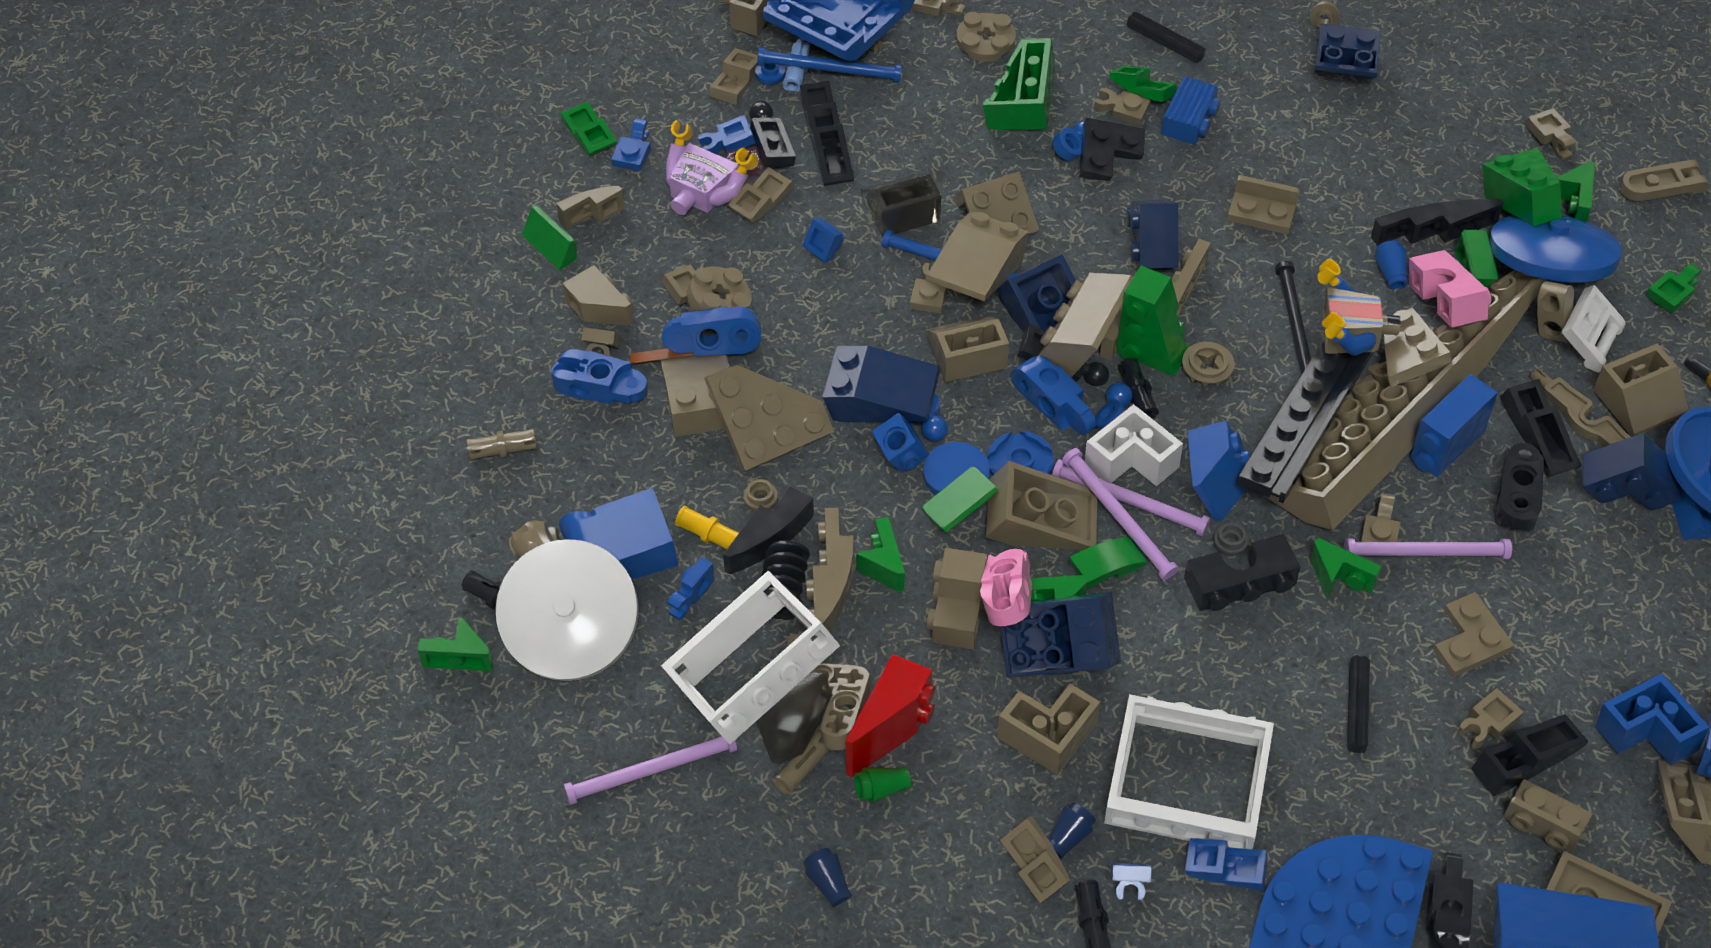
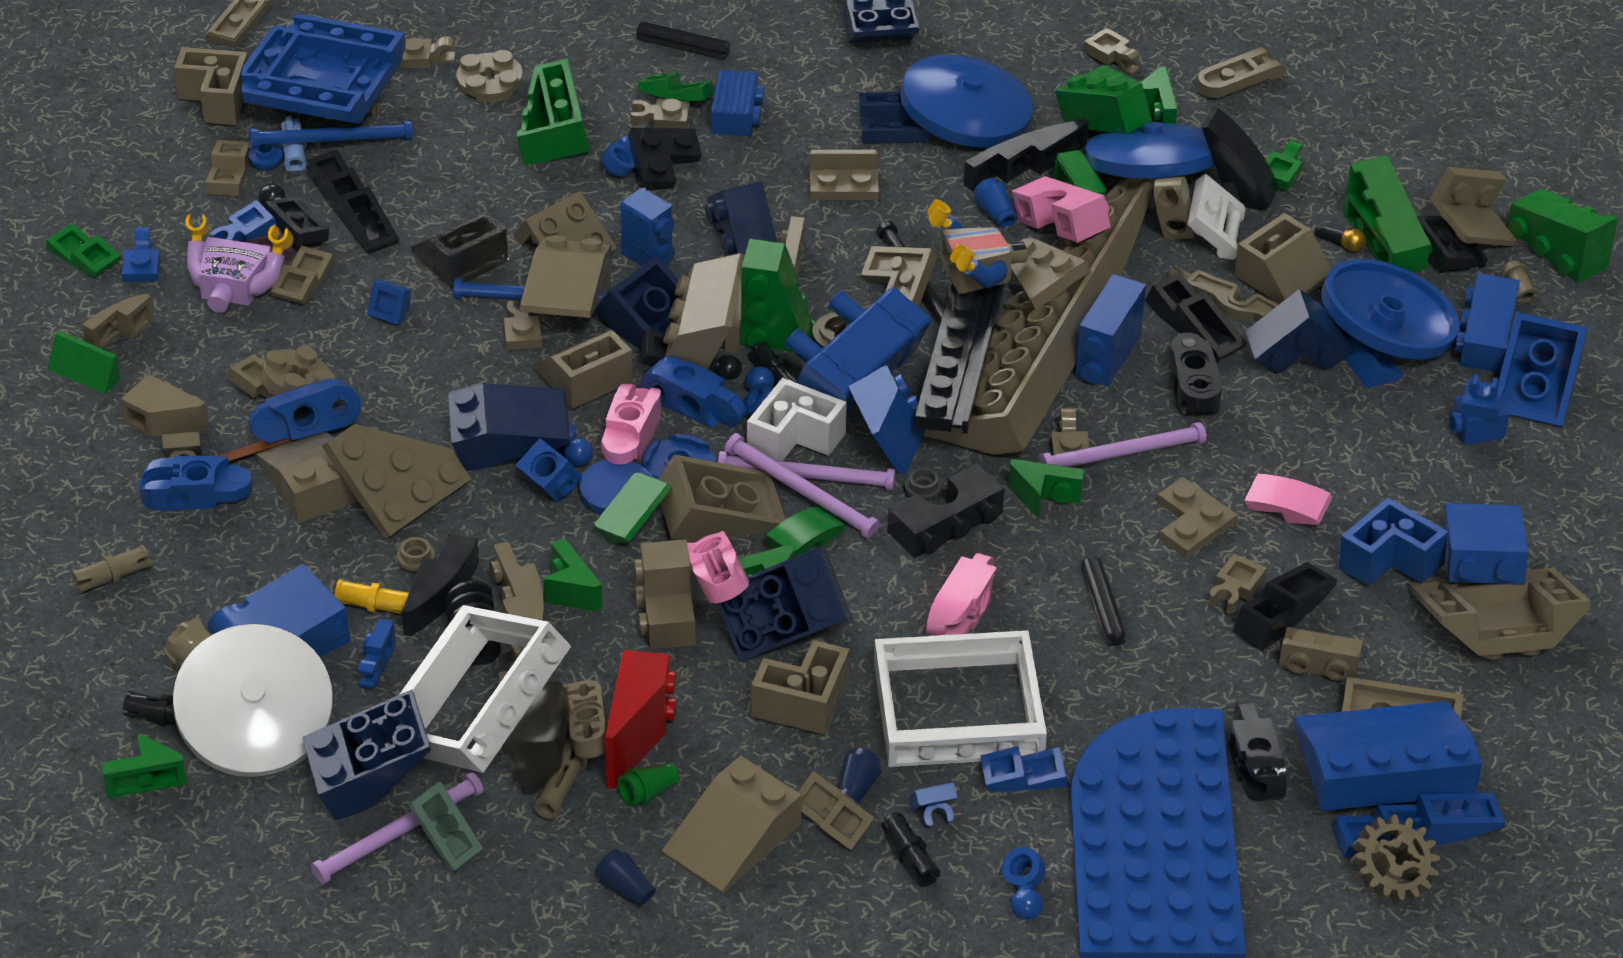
camera: 20 degrees left, 10 degrees down
(640, 692) = (366, 754): none -> dark blue slope
(687, 781) = (445, 826): none -> sand green slope
(941, 850) = (734, 825): none -> dark tan slope
(989, 411) = (630, 423): none -> bright pink piece
(1066, 222) = (646, 227): none -> blue brick
(1217, 394) = (875, 337): none -> blue piece
(1226, 669) = (962, 597): none -> bright pink piece
(1285, 320) = (900, 268): none -> dark tan plate
(1329, 155) = (886, 120): none -> dark blue slope
(1399, 154) = (966, 100): none -> blue dish
(1571, 643) = (1294, 499): none -> bright pink slope
(1631, 277) = (1239, 160): none -> black slope

